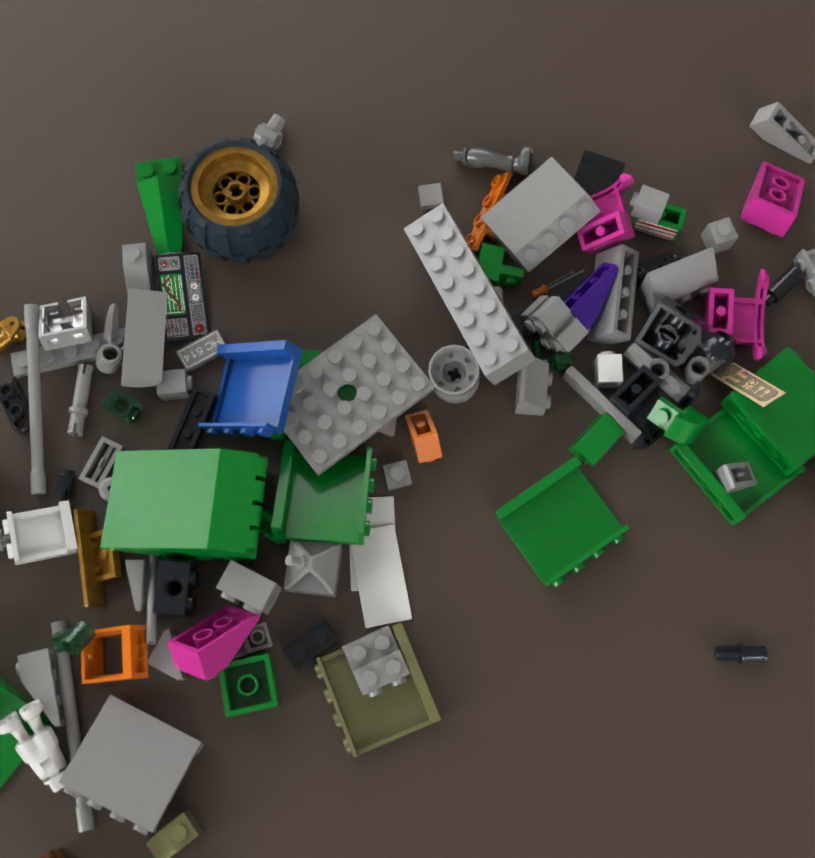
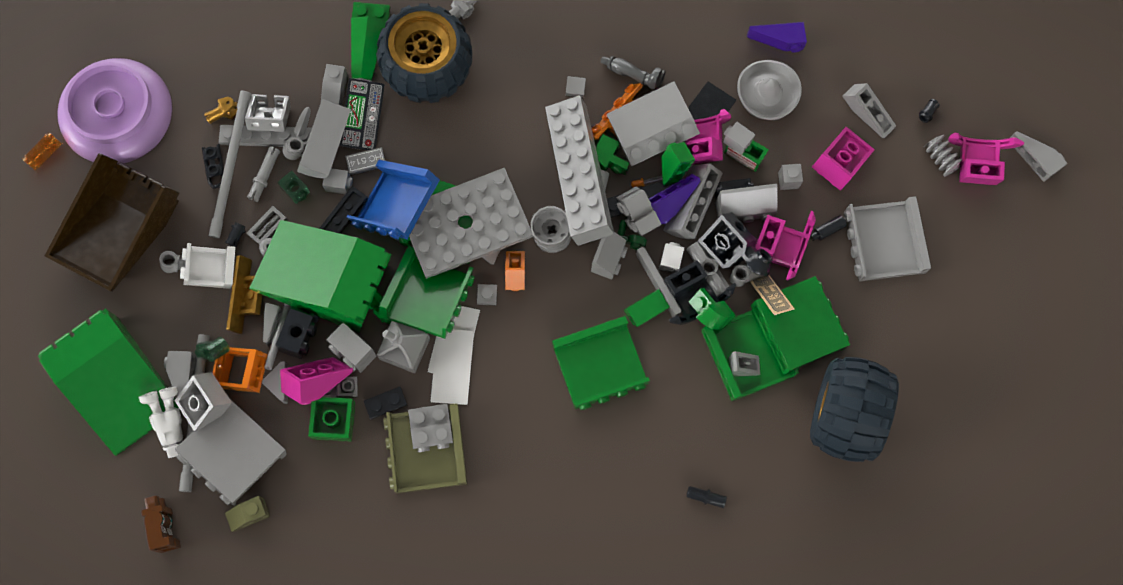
camera: 10 degrees right, 0 degrees up
(78, 709) = (202, 400): none -> light grey slope
(581, 253) = (675, 162): none -> green slope
(655, 75) = (781, 36): none -> dark purple slope
(662, 140) = (769, 89): none -> light grey hat

